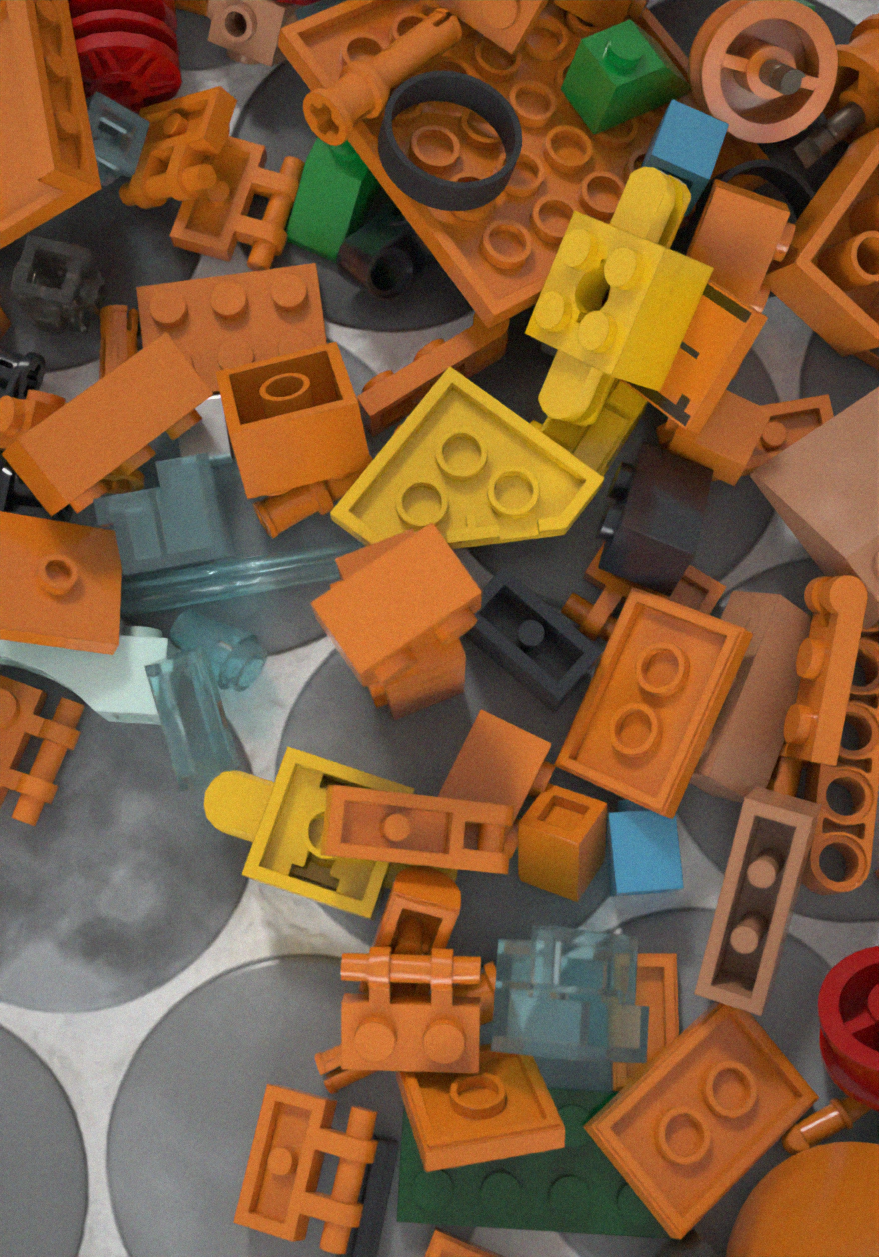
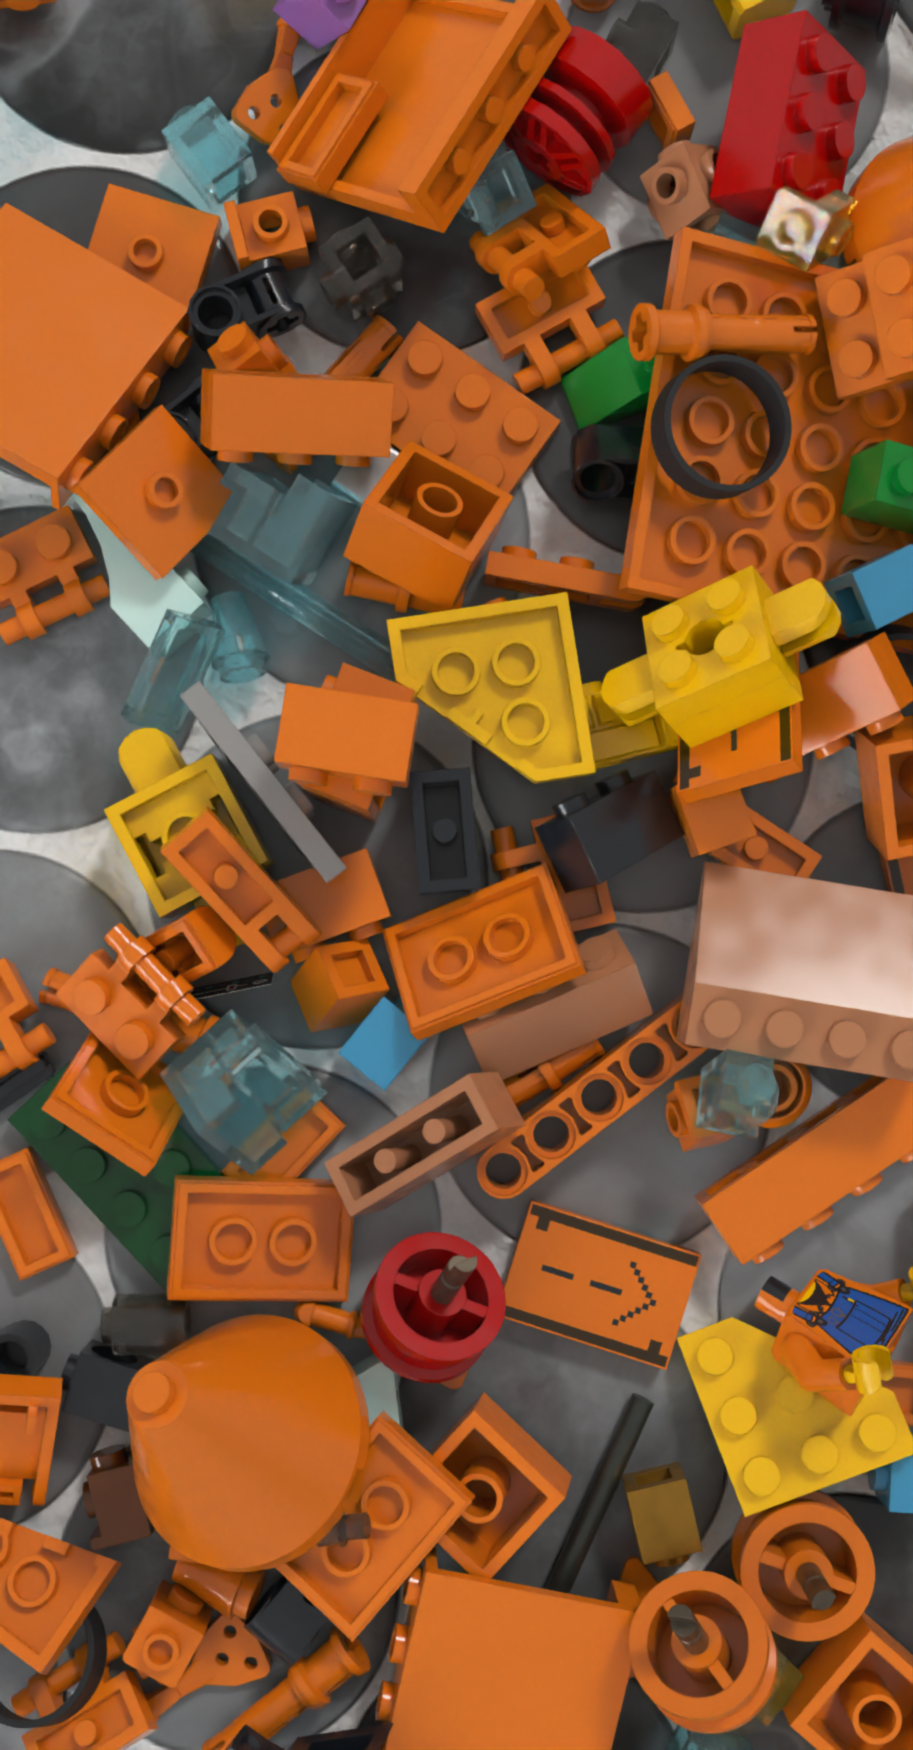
camera: 40 degrees right, 10 degrees up
(376, 738) = (256, 768): none -> light grey wing
(480, 922) = (233, 985): none -> black sticker
(826, 668) = (615, 1041): orange plate -> none

